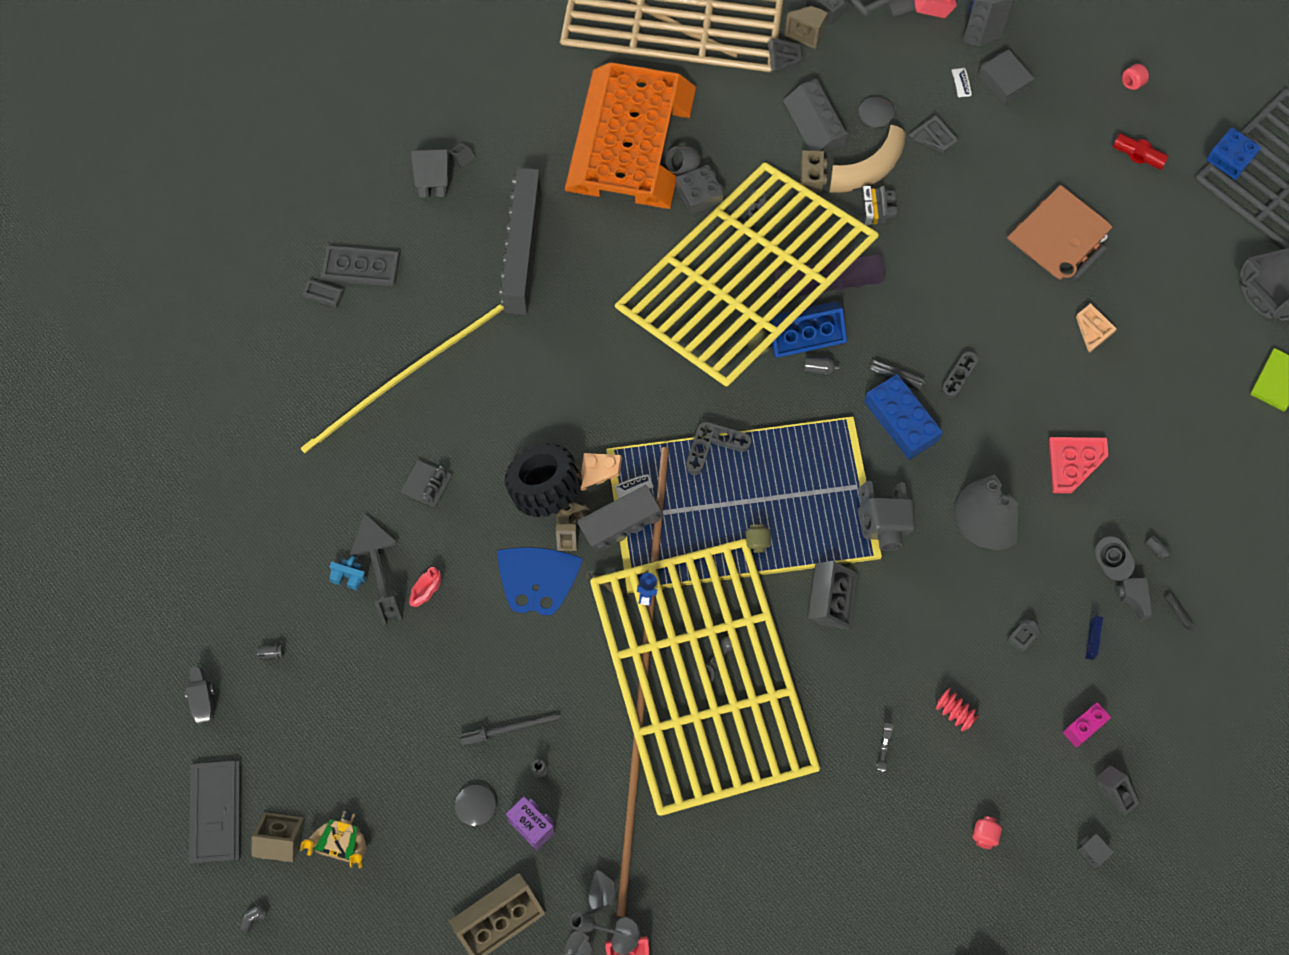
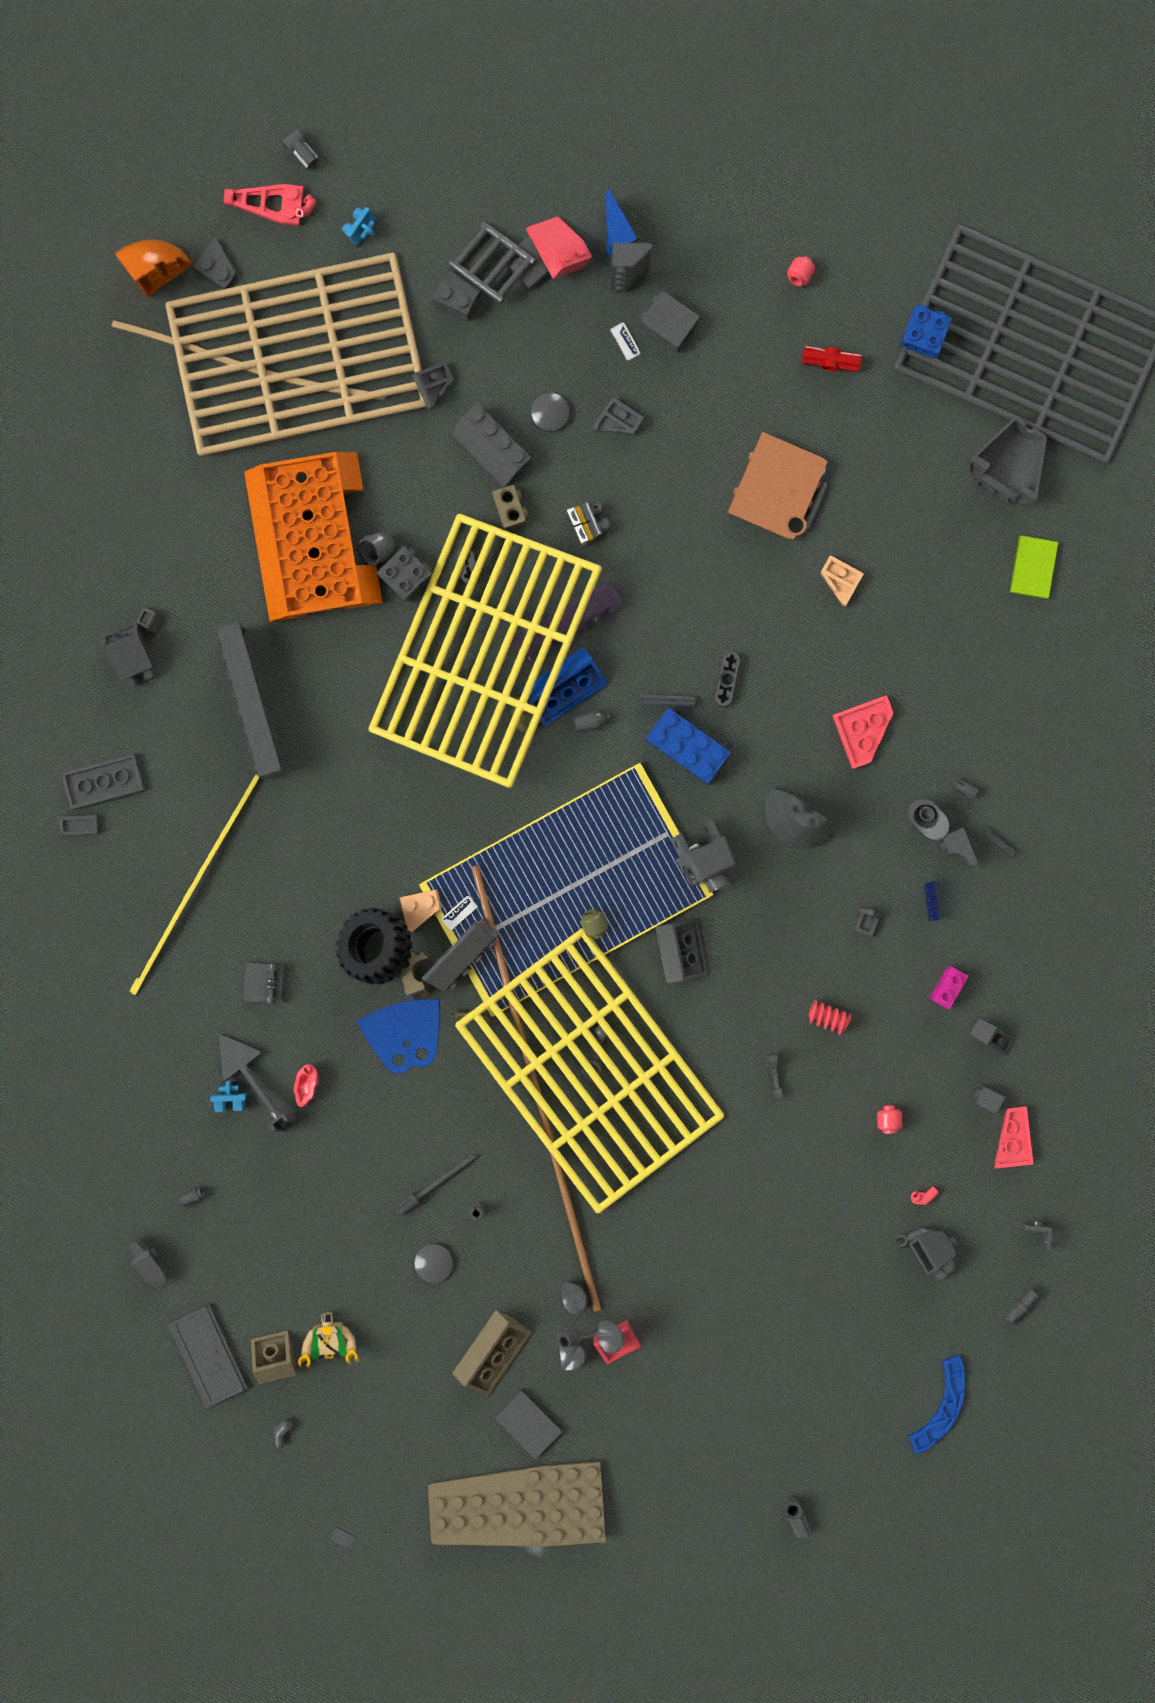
camera: 20 degrees left, 20 degrees up
(531, 823) = (489, 1265): medium lavender brick -> none
(648, 583) = (512, 1021): blue hips -> none
(713, 438) = (516, 836): dark grey beam -> none
(806, 25) = (445, 339): dark tan slope -> none
(871, 170) = (571, 480): tan brick -> none
(998, 929) = (924, 1198): none -> coral arm
(1111, 903) = (1015, 1139): none -> coral wing

